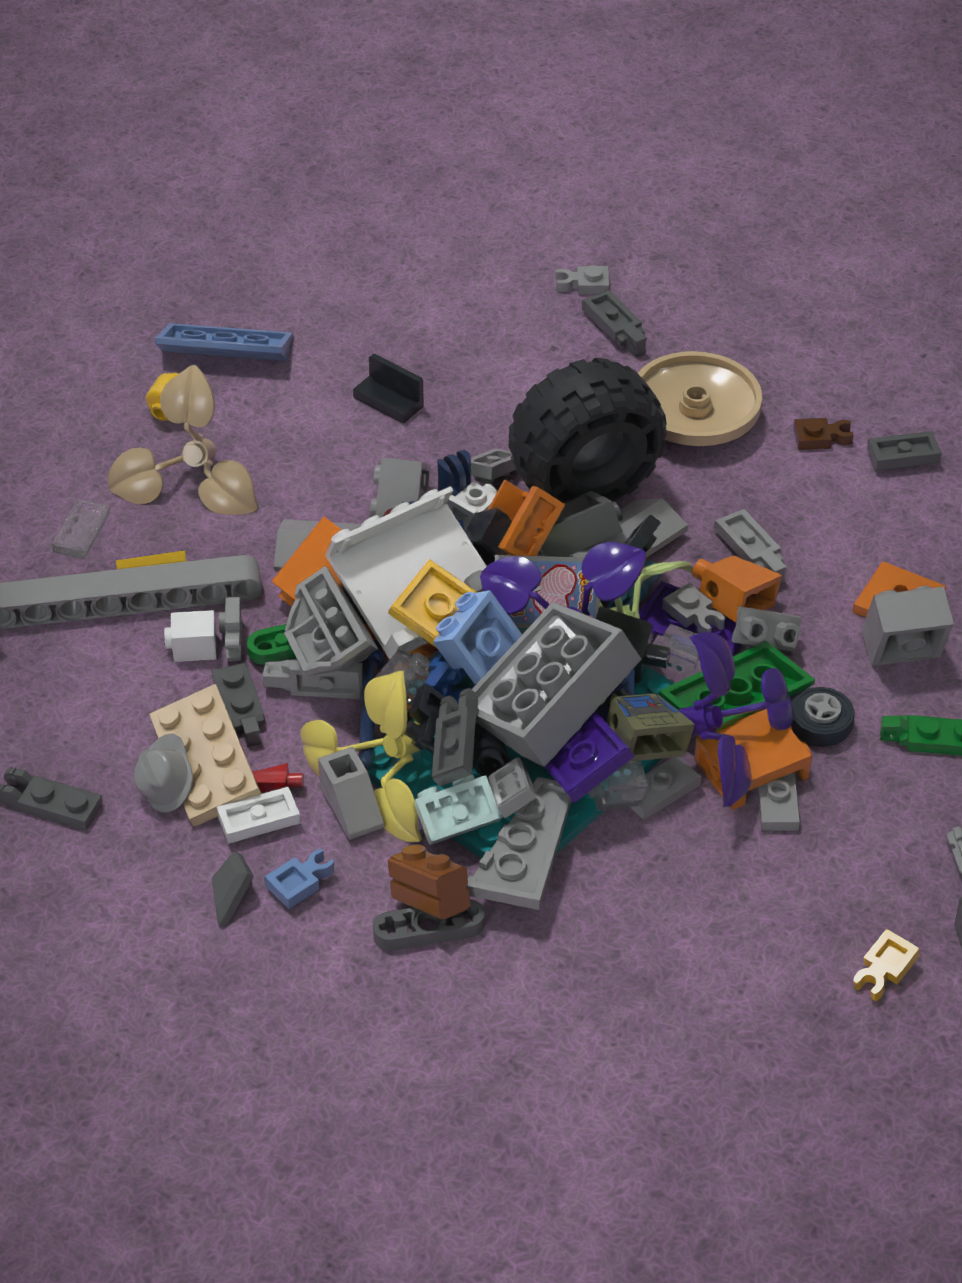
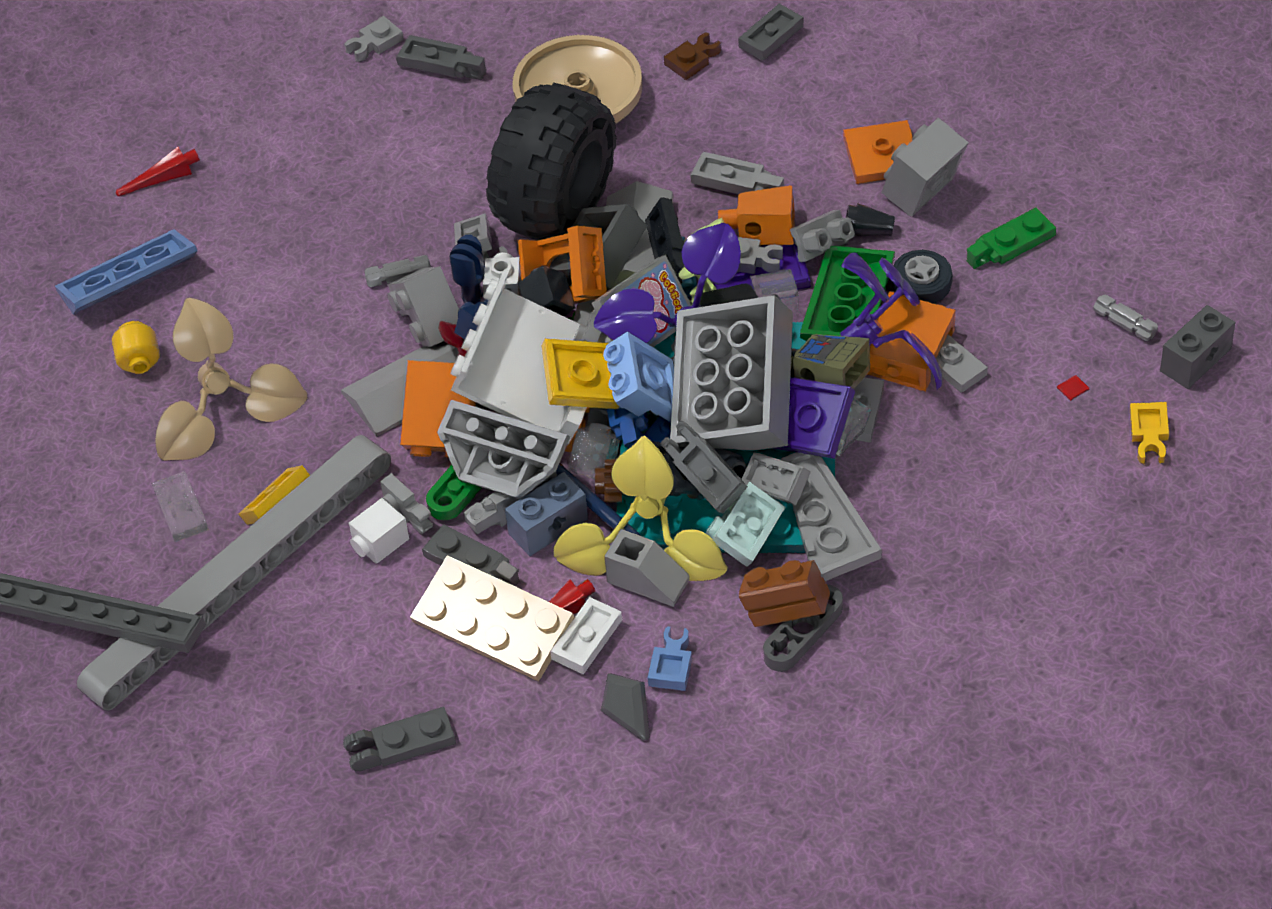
camera: 35 degrees left, 5 degrees up
(164, 773) = (479, 652): light grey piece -> none
(326, 699) = (546, 513): none -> sand blue brick
(337, 286) = (170, 167): none -> red piece
(391, 389) = (317, 226): black panel -> none
(397, 451) = (395, 270): none -> light grey axle
(823, 644) = (870, 221): none -> black cone
(861, 888) = (1073, 387): none -> red window

